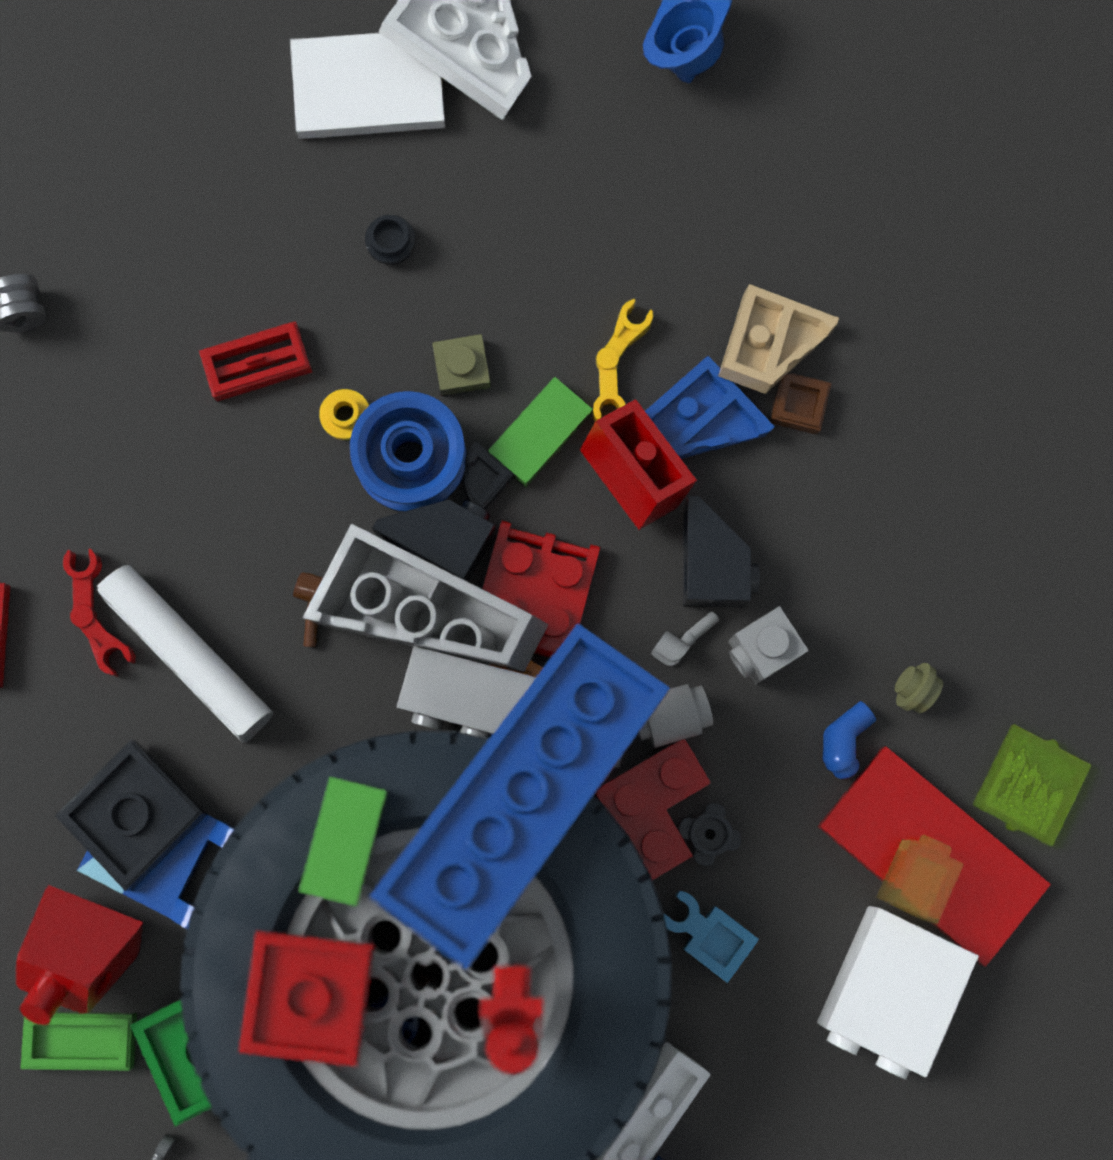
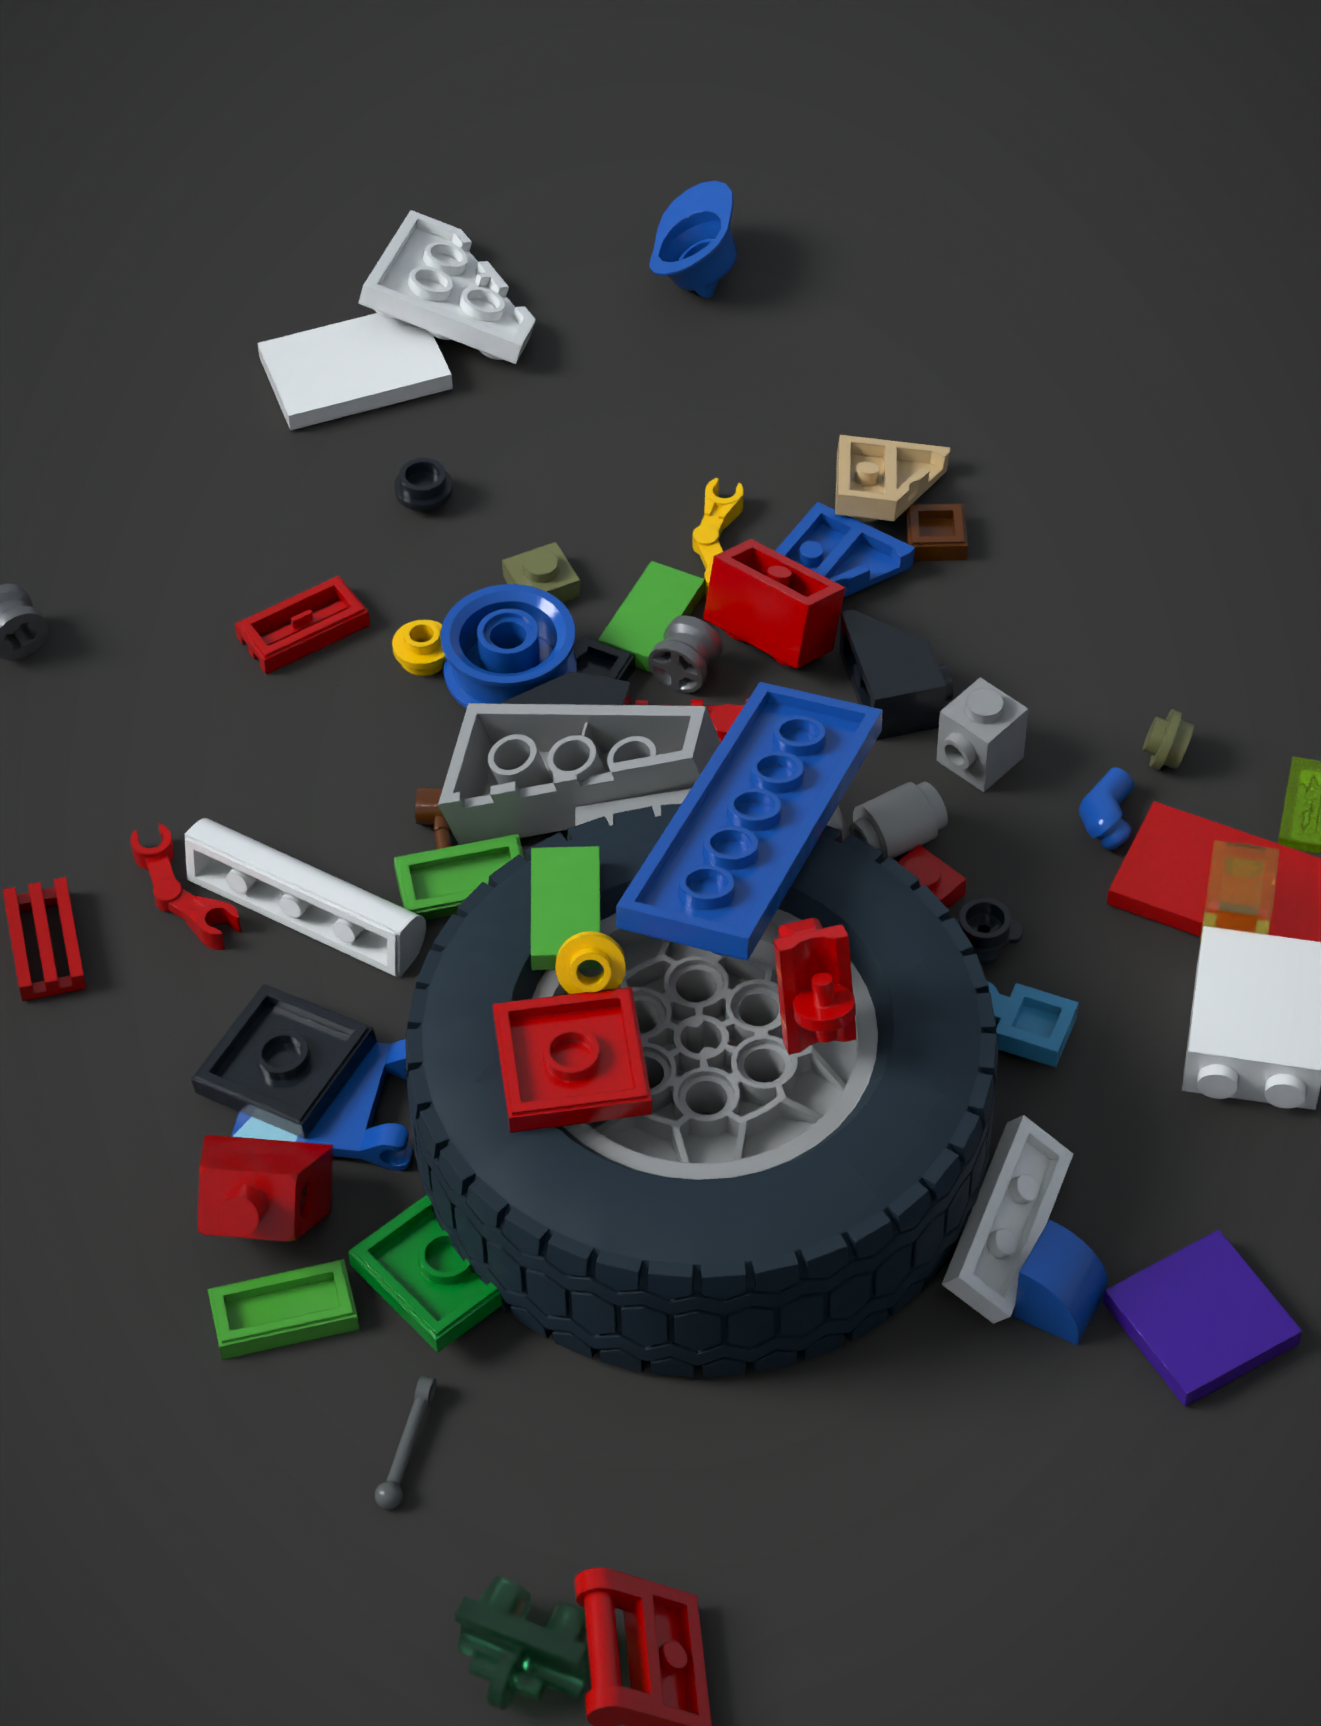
camera: 10 degrees left, 30 degrees down
(315, 668) = (442, 878): none -> bright green tile
(343, 919) = (590, 946): none -> yellow plate
(553, 489) = (685, 654): none -> flat silver wheel
(671, 648) = (878, 771): light grey hand -> none

